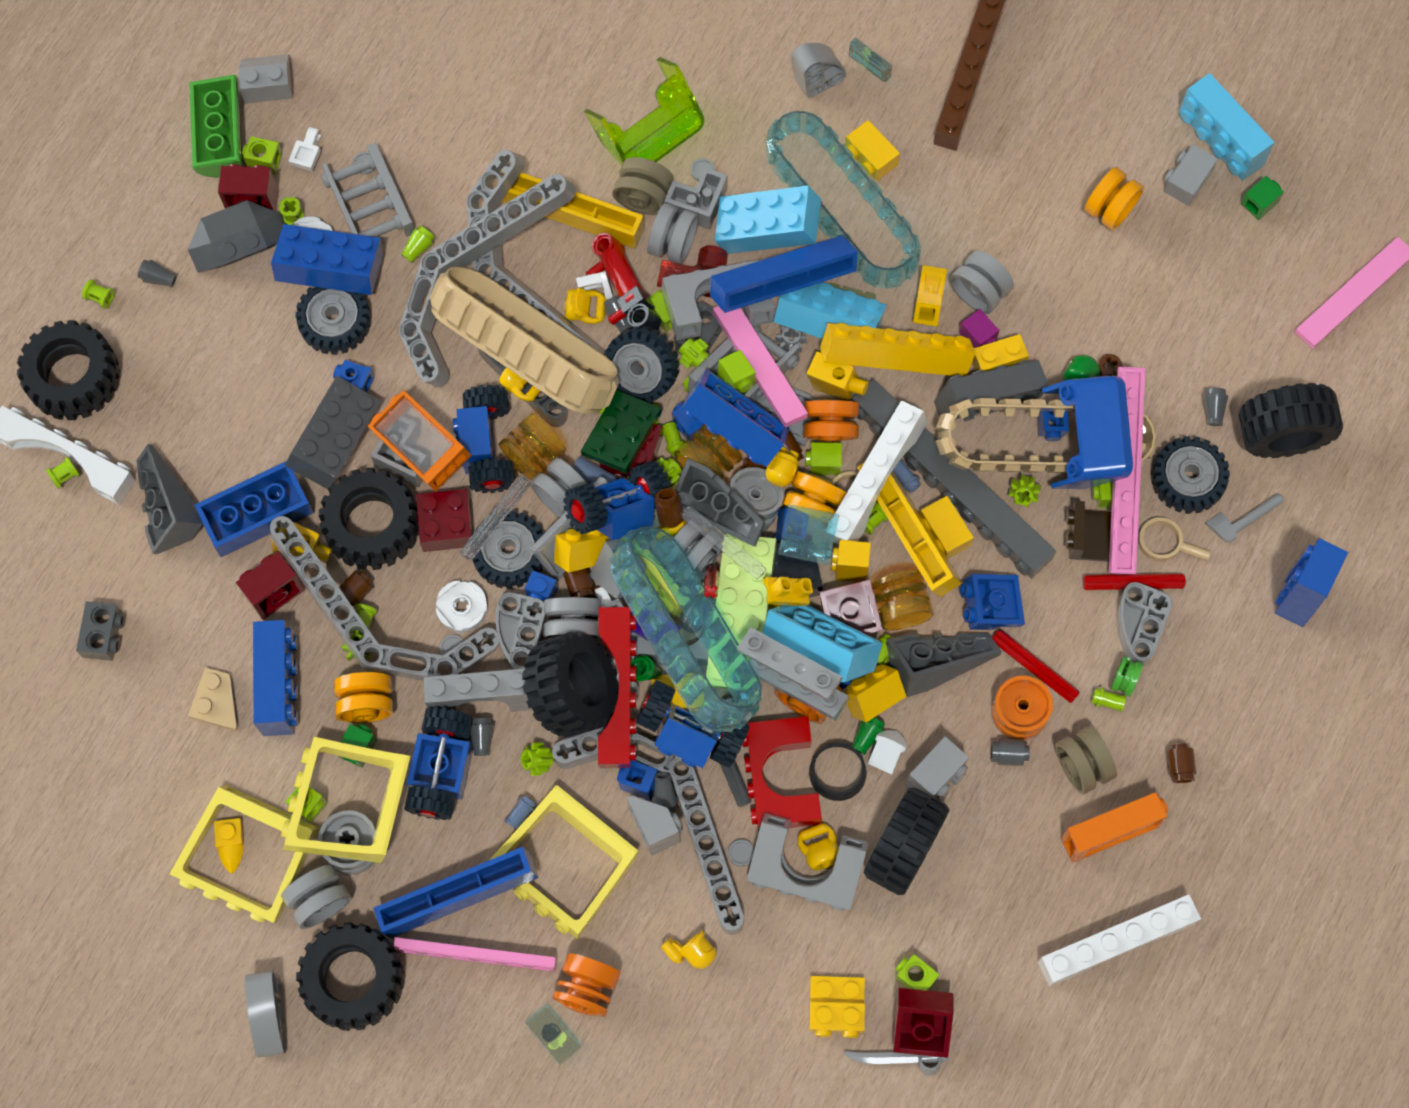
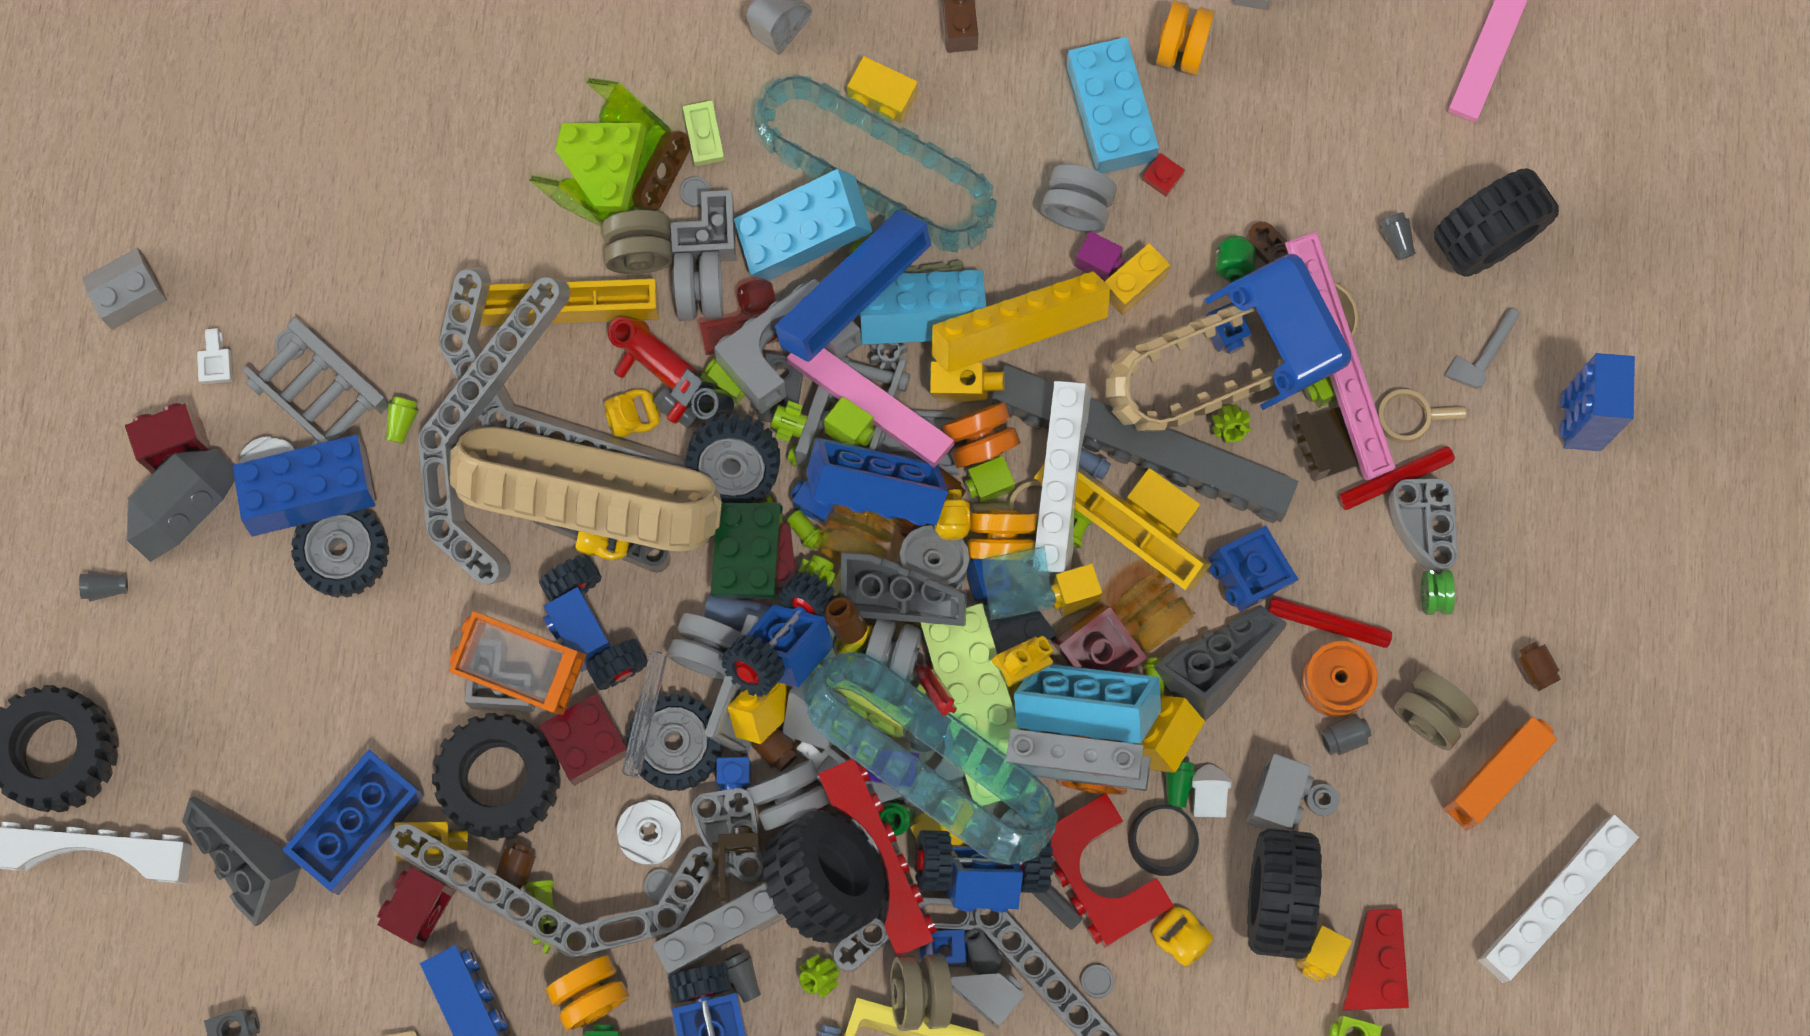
camera: 25 degrees left, 5 degrees up
(62, 472) = (101, 875): lime bush -> none
(98, 294) = (42, 638): lime bush -> none
(215, 124) = (90, 374): bright green brick -> none
(256, 146) = (175, 391): lime brick -> none
(289, 214) = (230, 432): lime bush -> none
(332, 433) = (407, 693): dark grey brick -> none
(362, 377) = (408, 618): blue brick -> none
(510, 631) = (741, 841): none -> dark brown bracket
(536, 443) = (649, 610): clear yellow wheel -> none
(595, 281) = (632, 378): white tile -> none
(600, 795) = (921, 992): none -> dark tan wheel
(644, 119) = (603, 160): none -> lime plate
(695, 144) = (673, 164): none -> reddish brown beam
(723, 542) = (926, 634): clear axle -> none
(727, 130) = (703, 133): none -> yellowish green plate
(772, 870) = (1220, 977): light grey arch -> none
(918, 902) = (1325, 955): none -> yellow brick
(930, 295) = (1025, 238): yellow brick -> none
(960, 932) = (1380, 964): none -> red wing
(971, 800) = (1316, 807): none -> light grey plate
(1019, 381) = (1145, 319): dark grey wedge -> none
(1038, 227) = (1112, 105): none -> medium azure brick
(1055, 292) = (1163, 174): none -> red plate
(1108, 699) = (1427, 627): lime pin -> none
(1195, 457) = (1409, 305): wheel -> none

